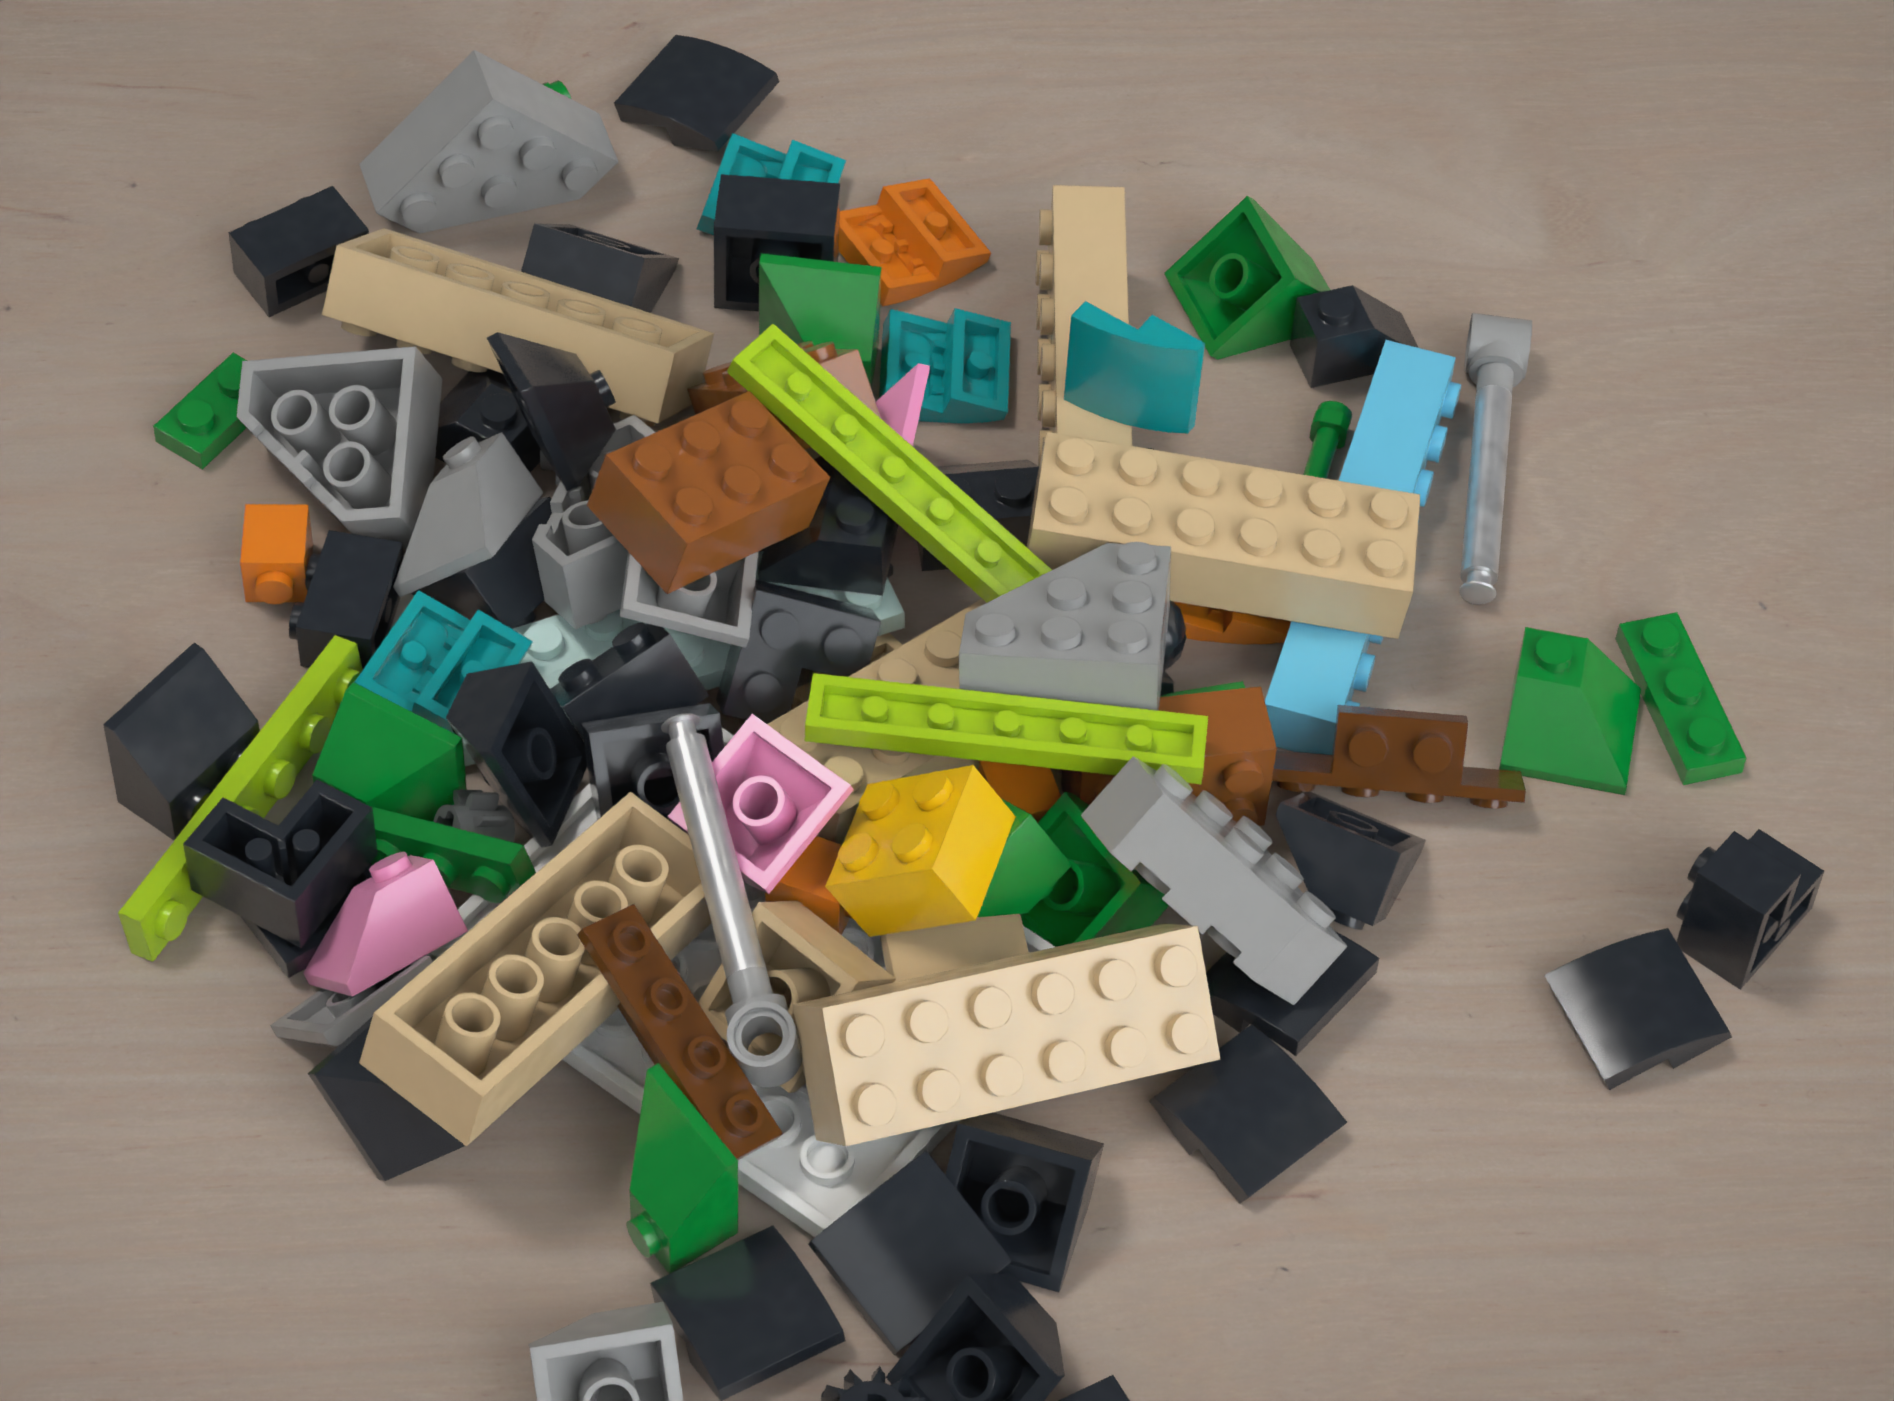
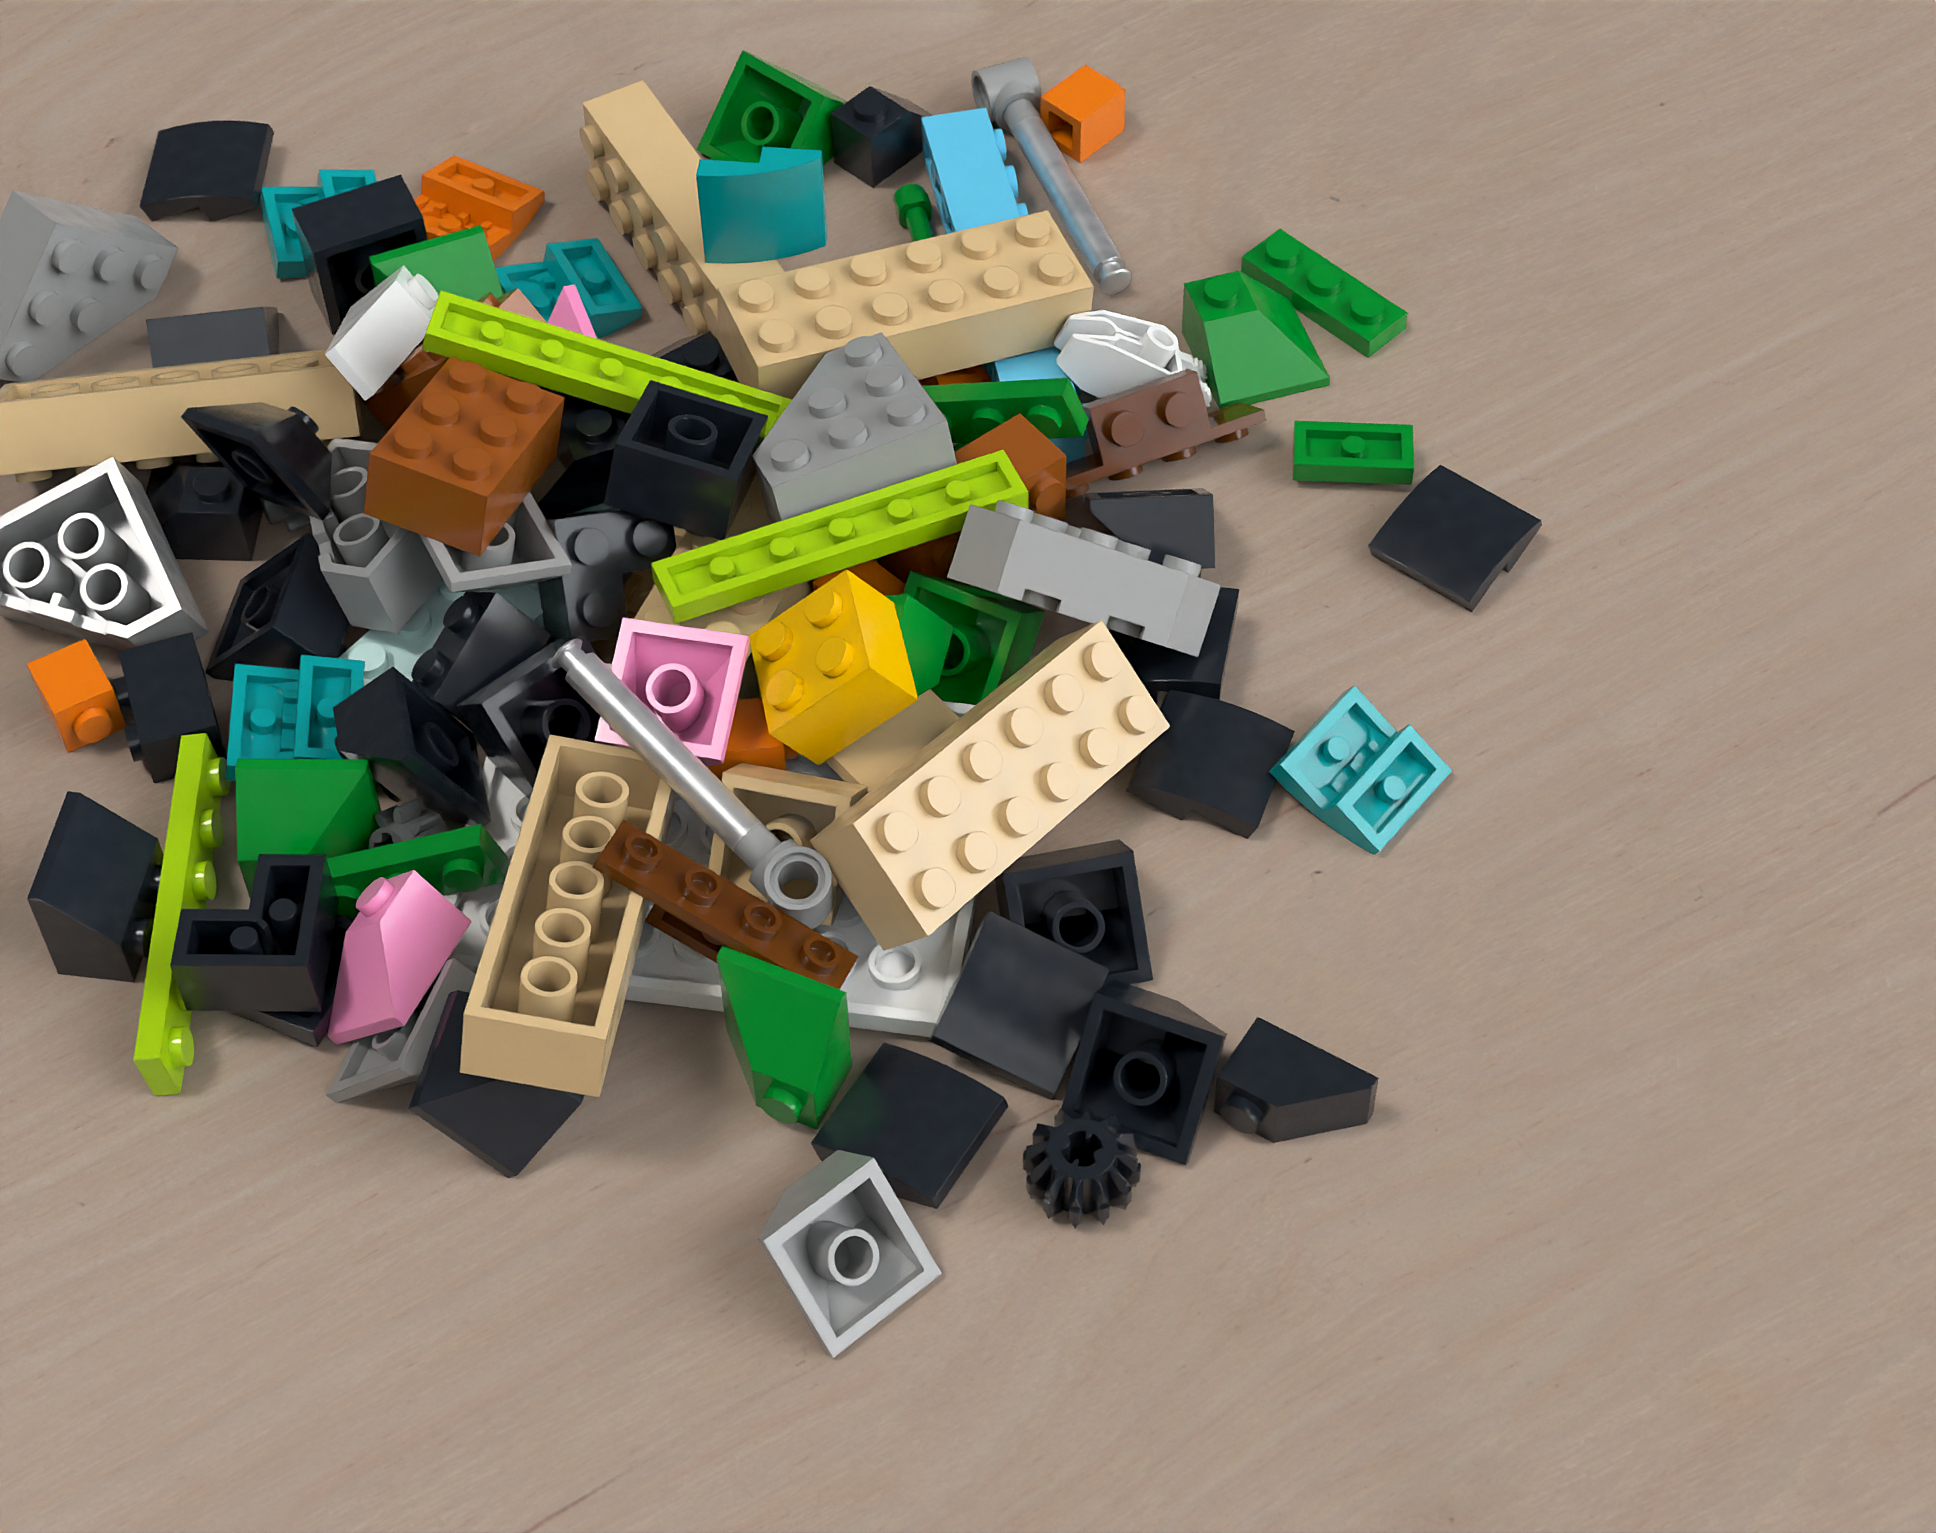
camera: 25 degrees left, 0 degrees up
(467, 511) = (241, 579): light grey slope -> none
(716, 332) = (382, 330): none -> white slope
(906, 587) = (685, 460): none -> black brick
(1230, 661) = (982, 406): none -> green plate
(1384, 1193) = (1360, 771): none -> slope
(1417, 669) = (1119, 352): none -> white hinge
(1559, 404) = (1084, 112): none -> orange brick
(1593, 874) = (1353, 452): none -> green plate
(1744, 904) = (1489, 422): black brick -> none

